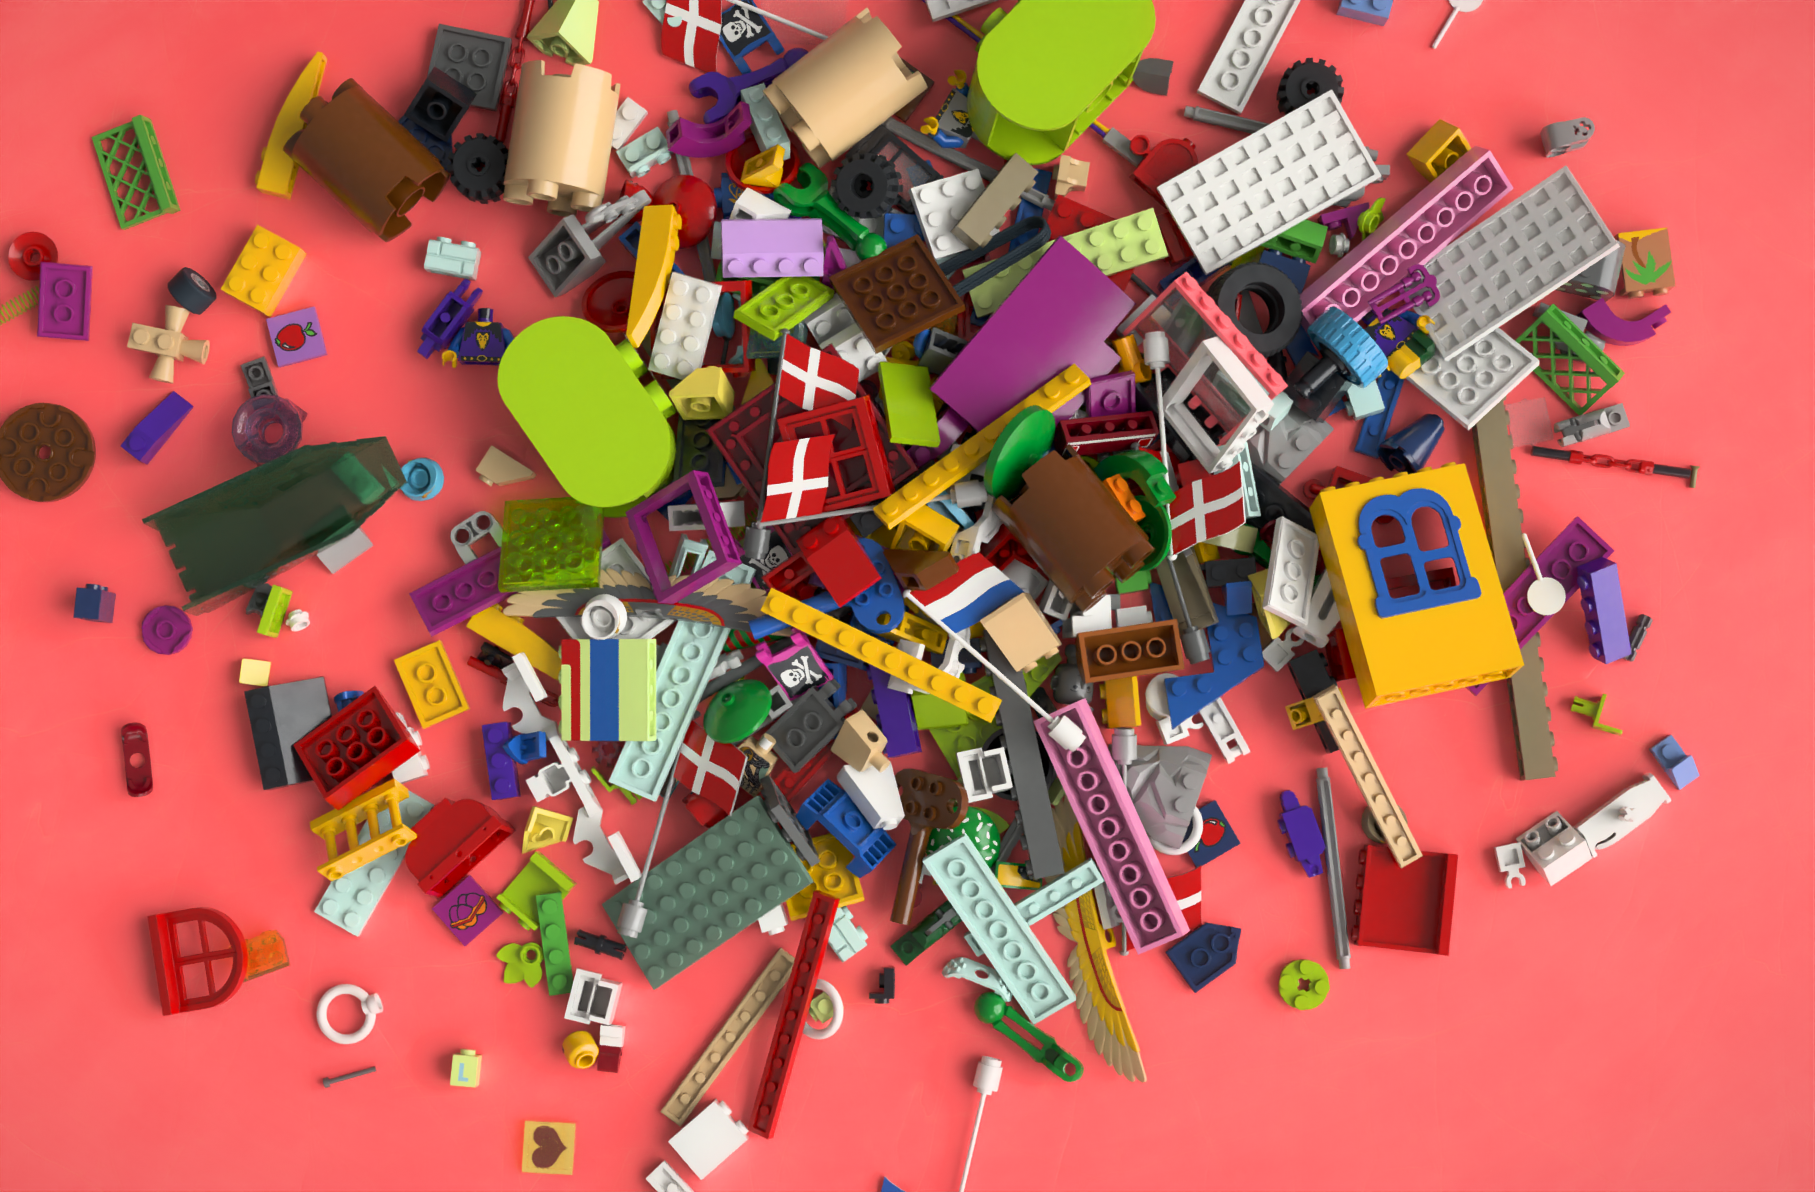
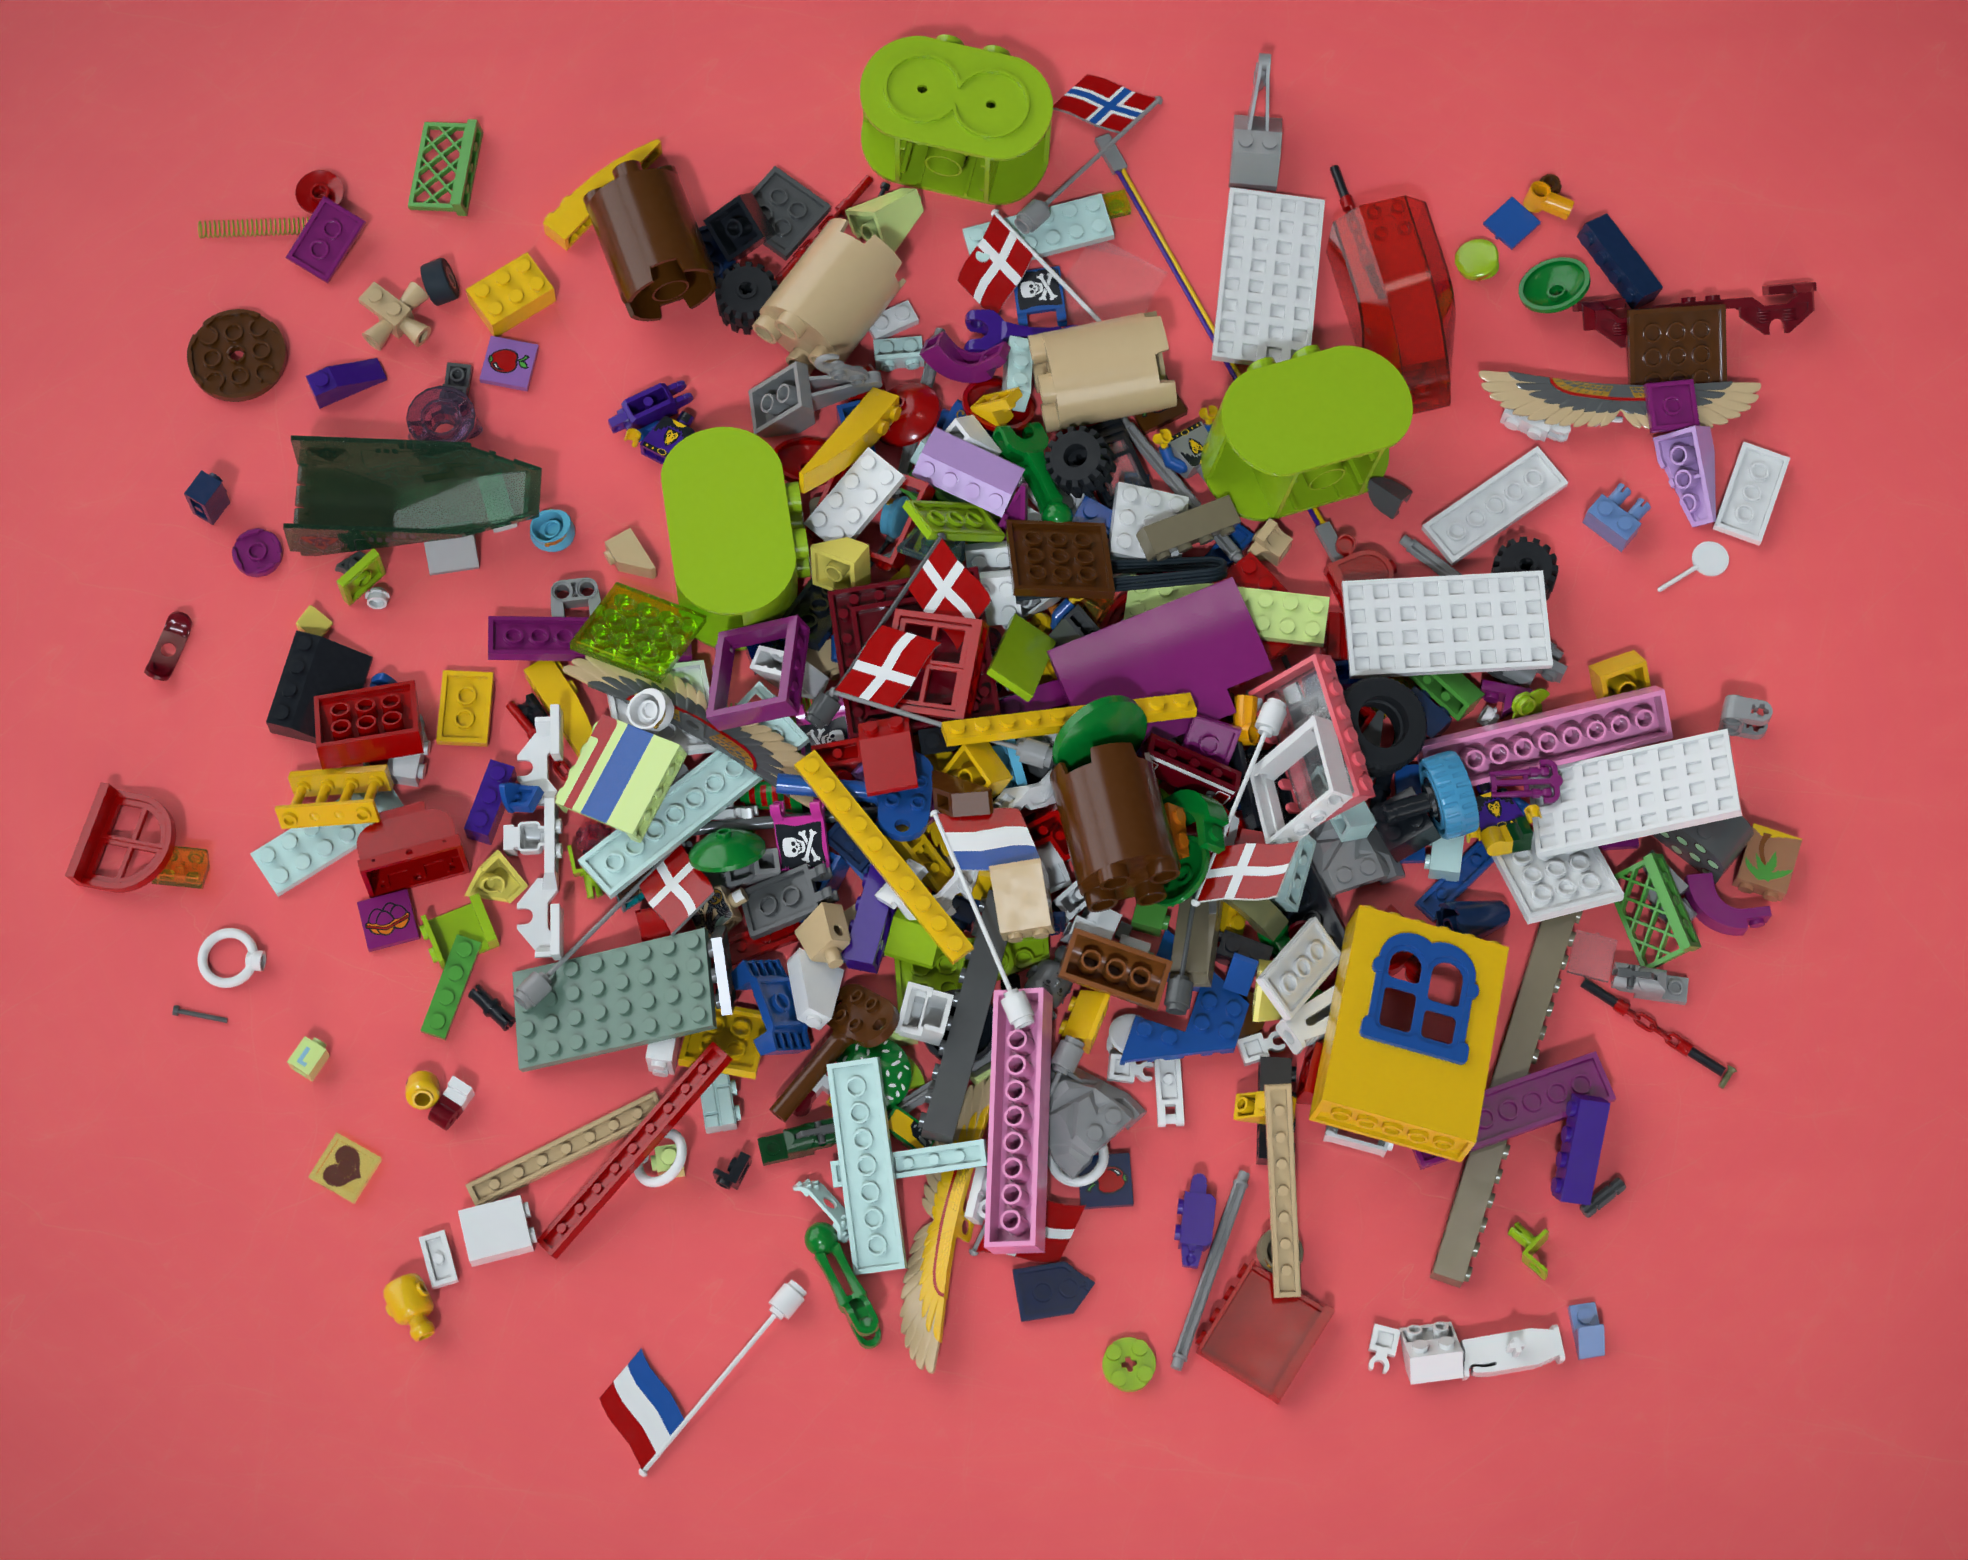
camera: 20 degrees right, 15 degrees down
(452, 259) = (681, 361): light aqua brick -> none
(519, 965) = (408, 991): lime plate -> none
(592, 998) = (460, 1049): white plate -> none
(1545, 594) = (1531, 1106): white piece -> none

